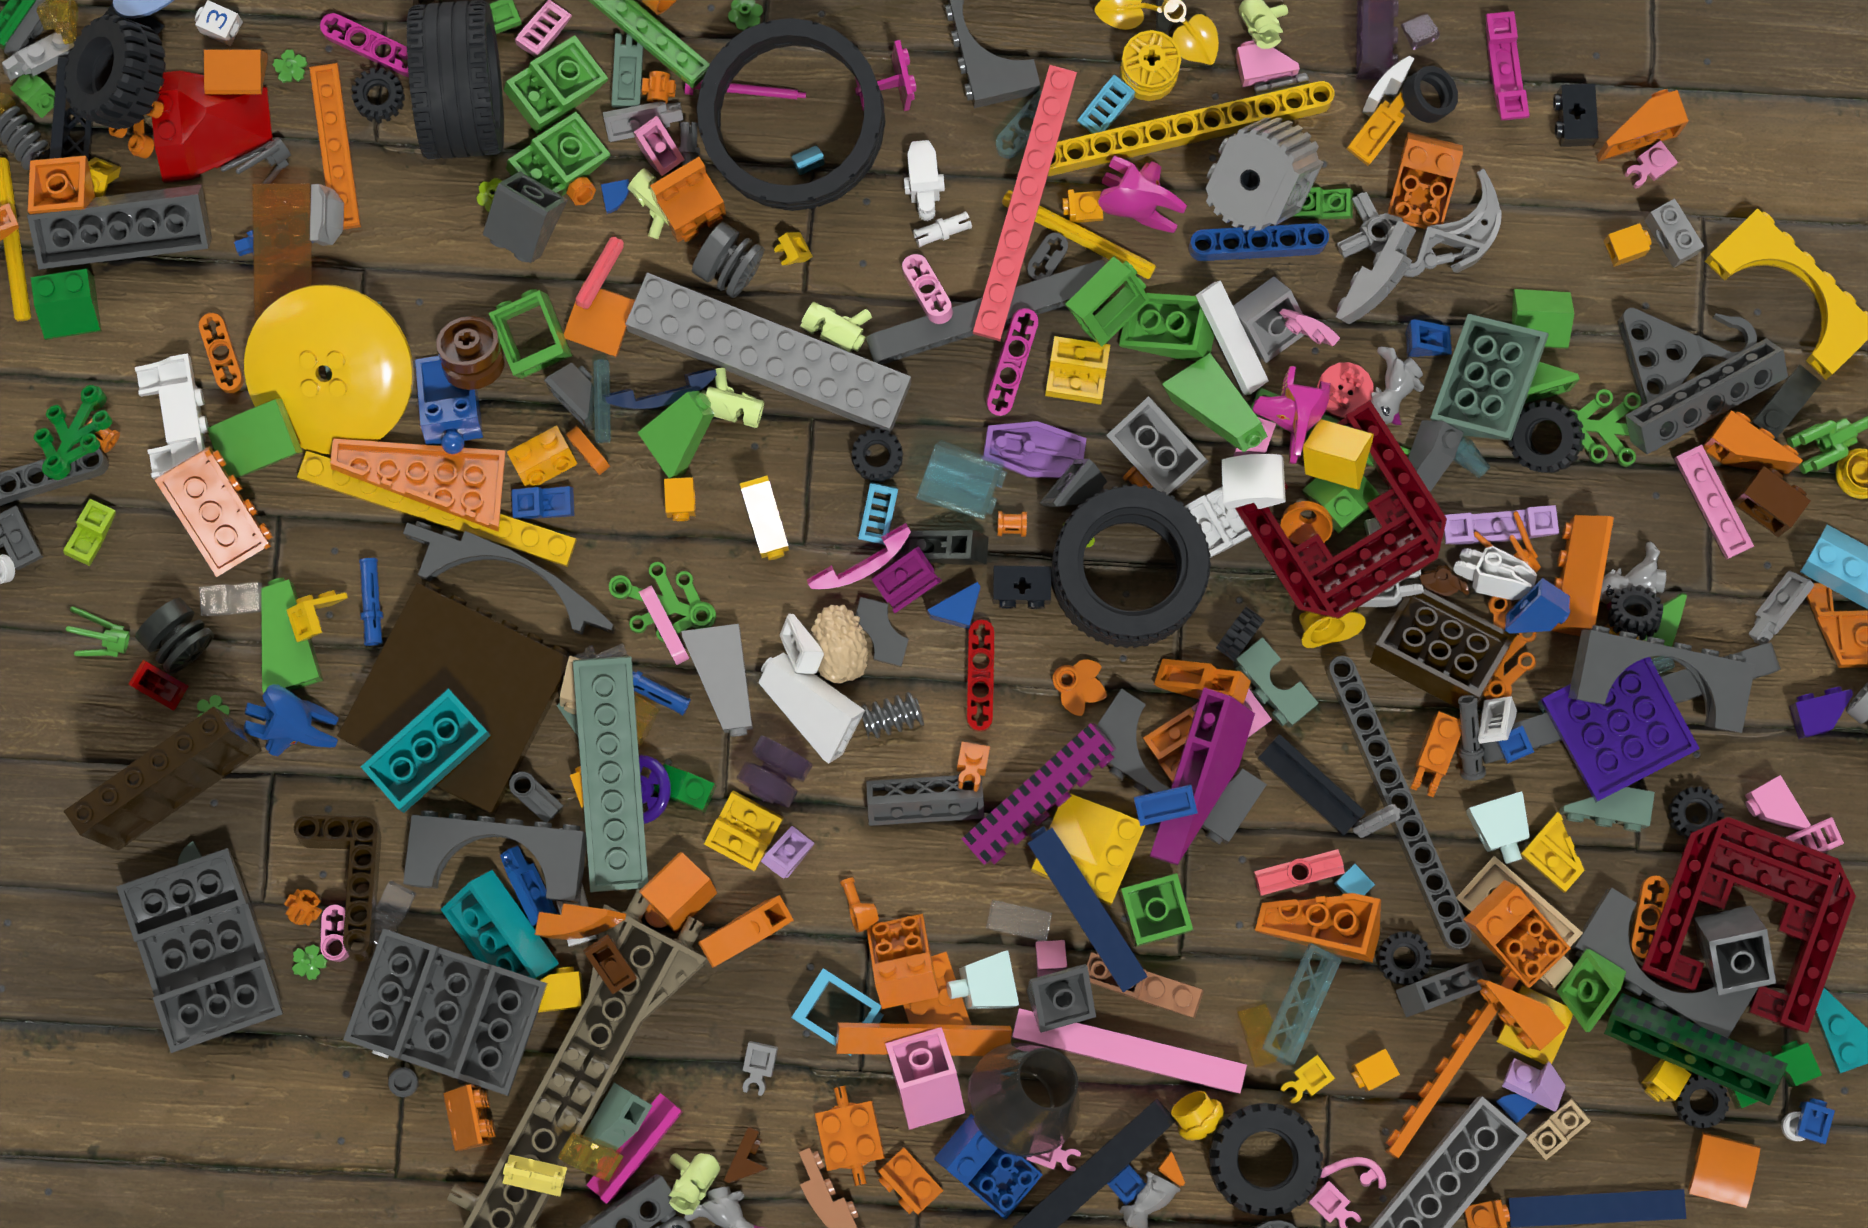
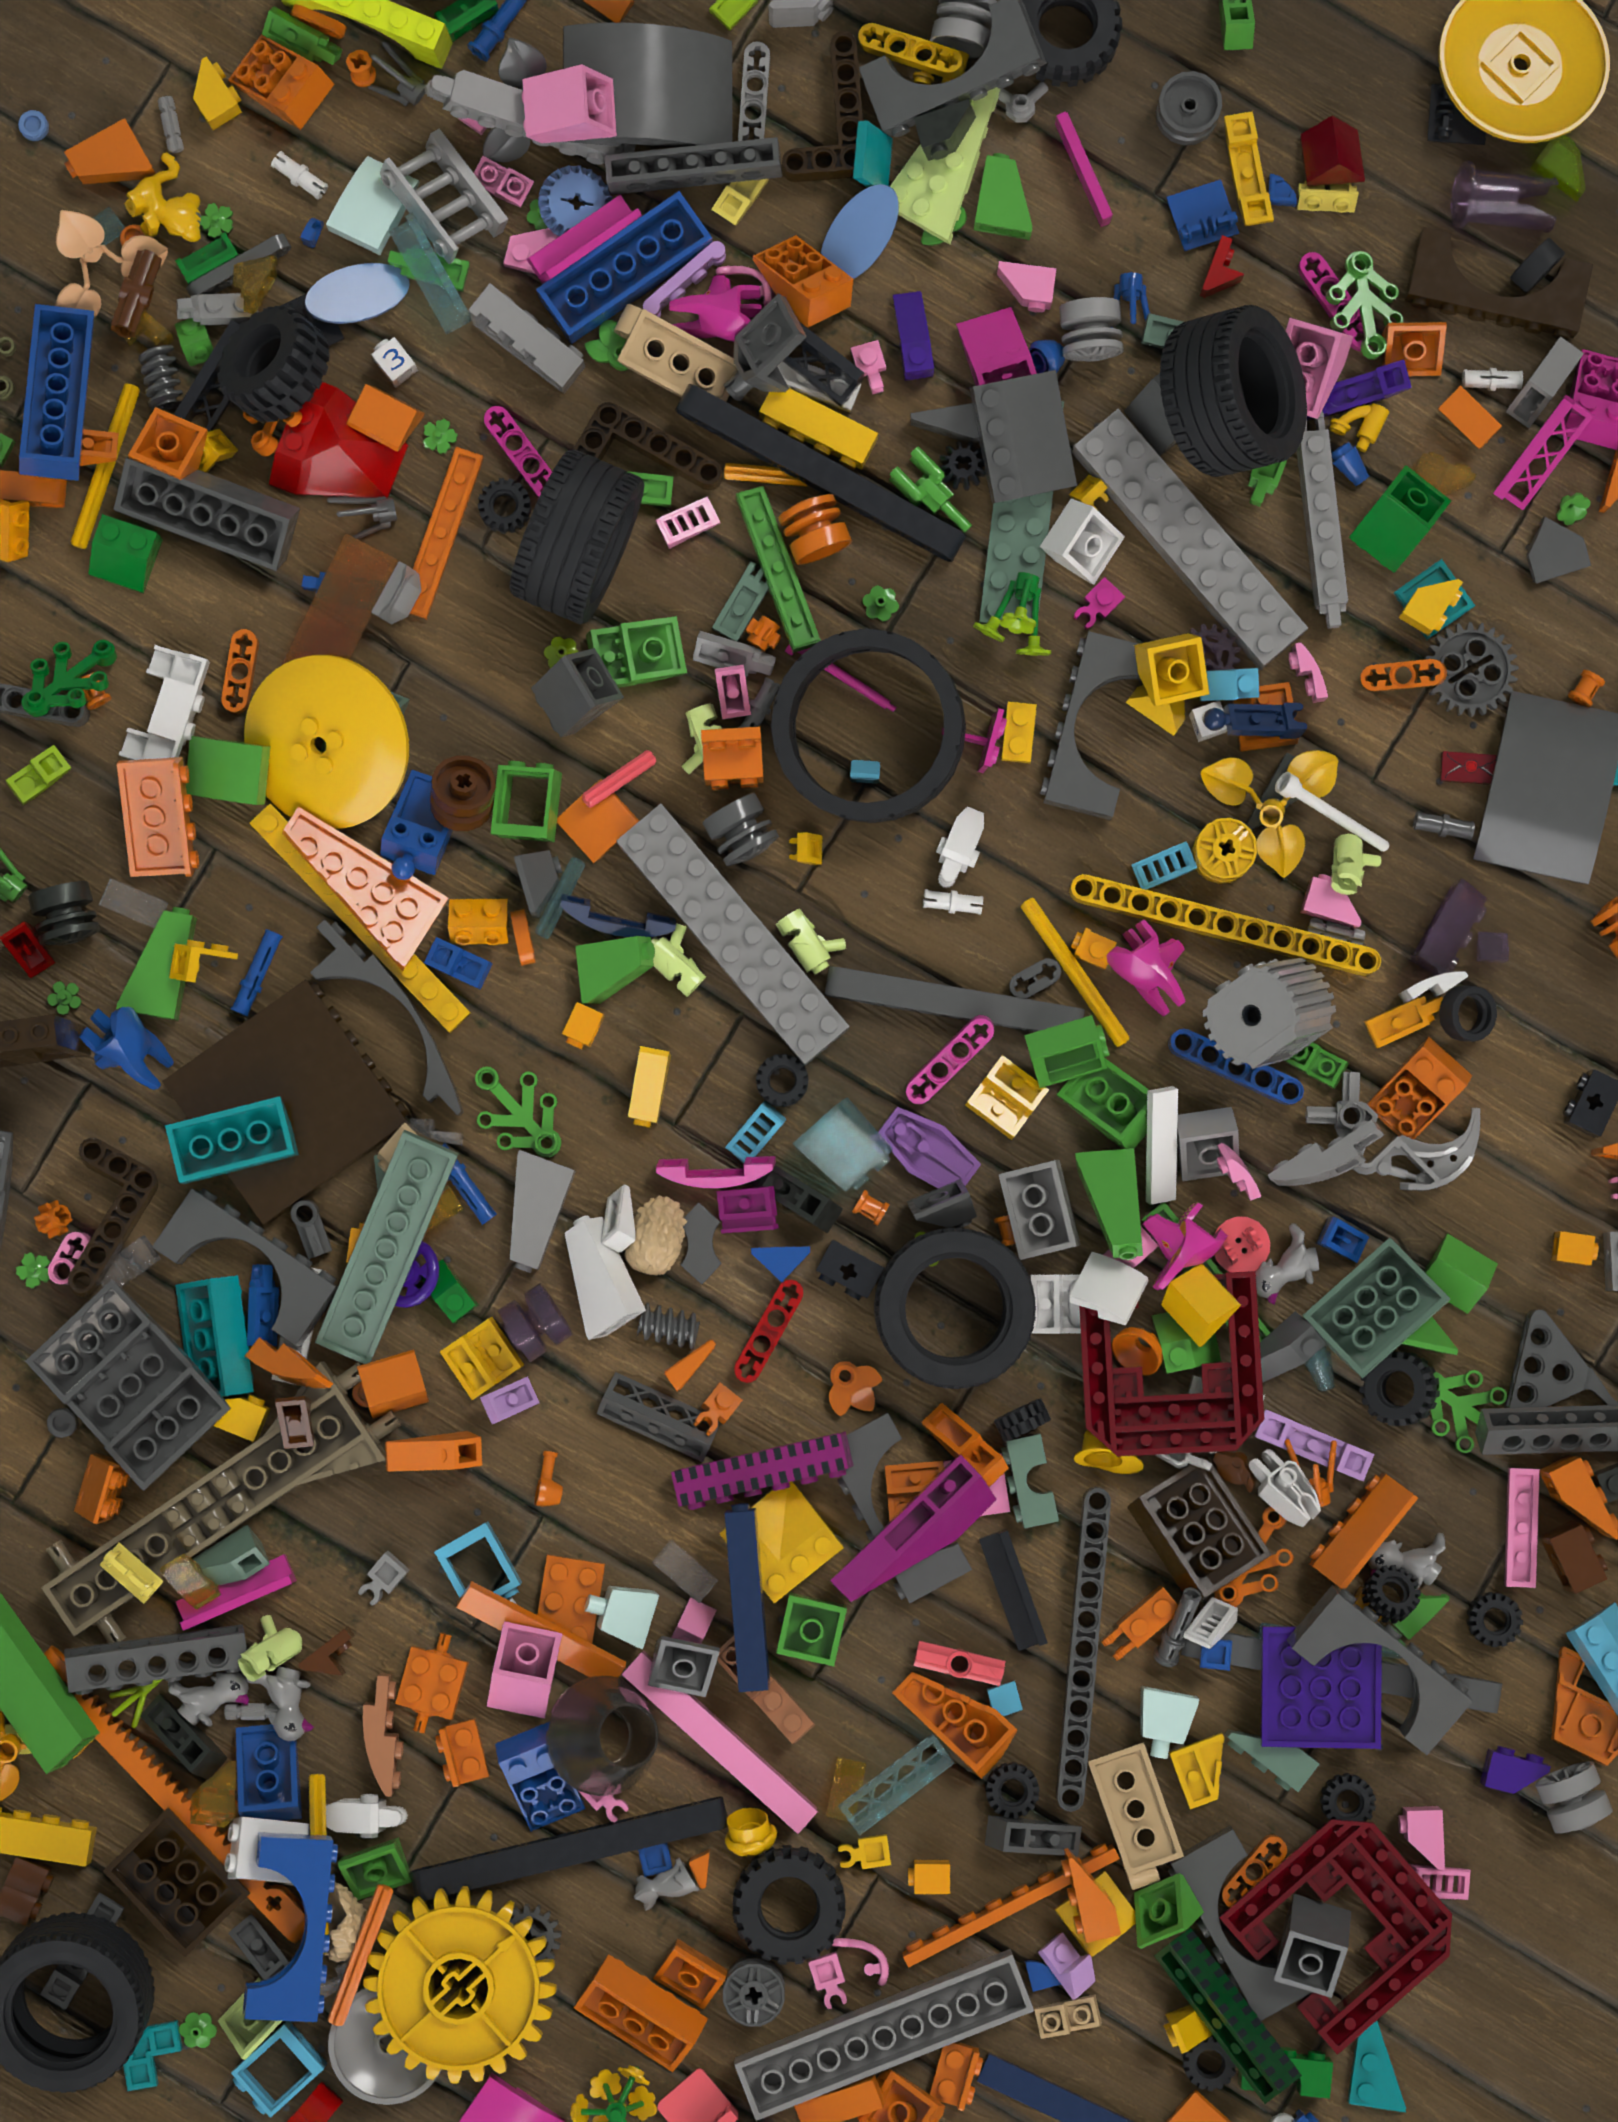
camera: 30 degrees right, 5 degrees up
(555, 84) = (671, 580): bright green slope -> none
(581, 191) = (642, 693): orange tile -> none
(615, 194) = (672, 711): blue tile -> none
(664, 625) = (507, 1128): bright pink beam -> none
(902, 961) = (559, 1554): orange slope -> none
(923, 60) = (1019, 732): none -> yellow plate
(924, 747) = (686, 1367): none -> orange slope
(926, 300) = (914, 941): bright pink beam -> none
(1007, 134) = (1100, 829): clear light blue beam -> none
(1024, 203) = (1039, 919): coral plate -> none
(1165, 805) = (867, 1544): blue tile -> none
(1377, 820) = (1054, 1655): light grey axle -> none
(1505, 66) = (1553, 1023): dark pink slope -> none
(1517, 933) = (1123, 1825): orange slope -> none
(1539, 610) = (1304, 1544): blue slope -> none
(1750, 586) = (1510, 1628): none -> black tyre
(1780, 606) = (1529, 1655): light grey hinge -> none

